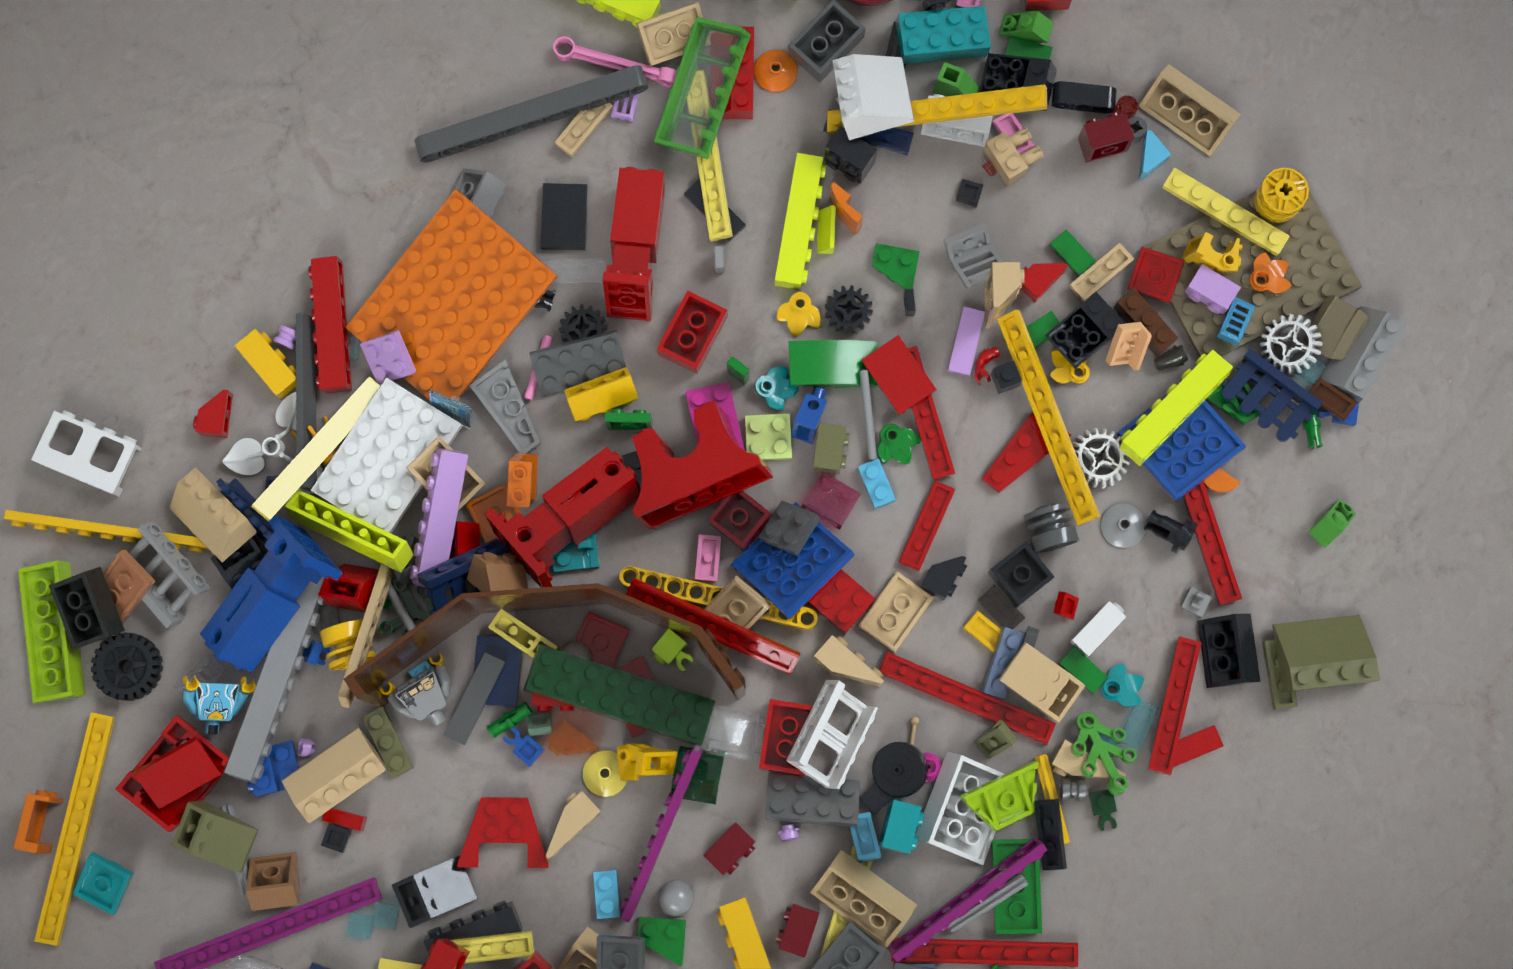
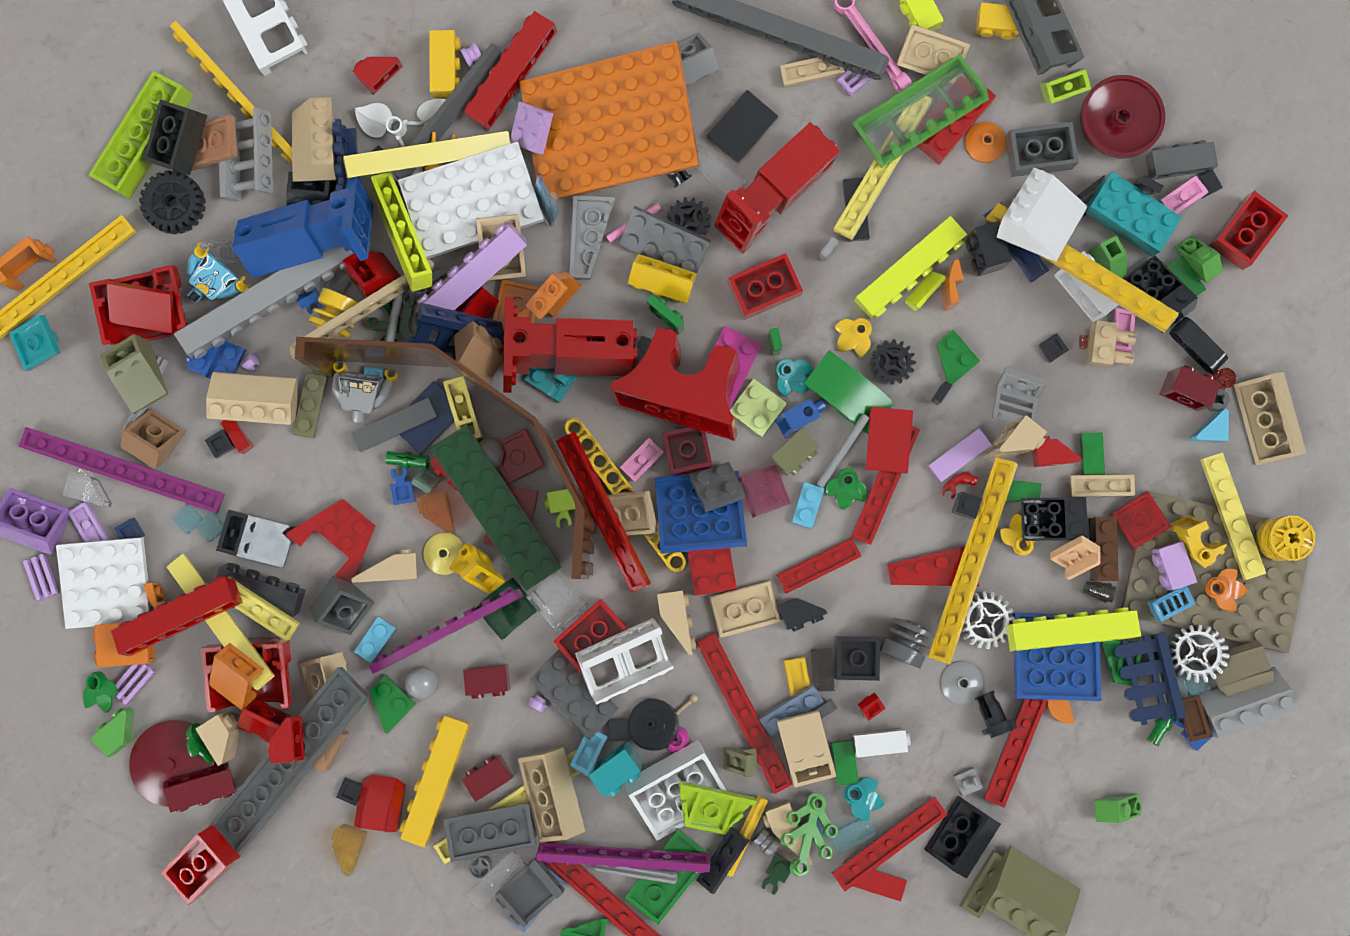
camera: 40 degrees right, 5 degrees up
(554, 888) = (340, 605): none -> dark grey slope

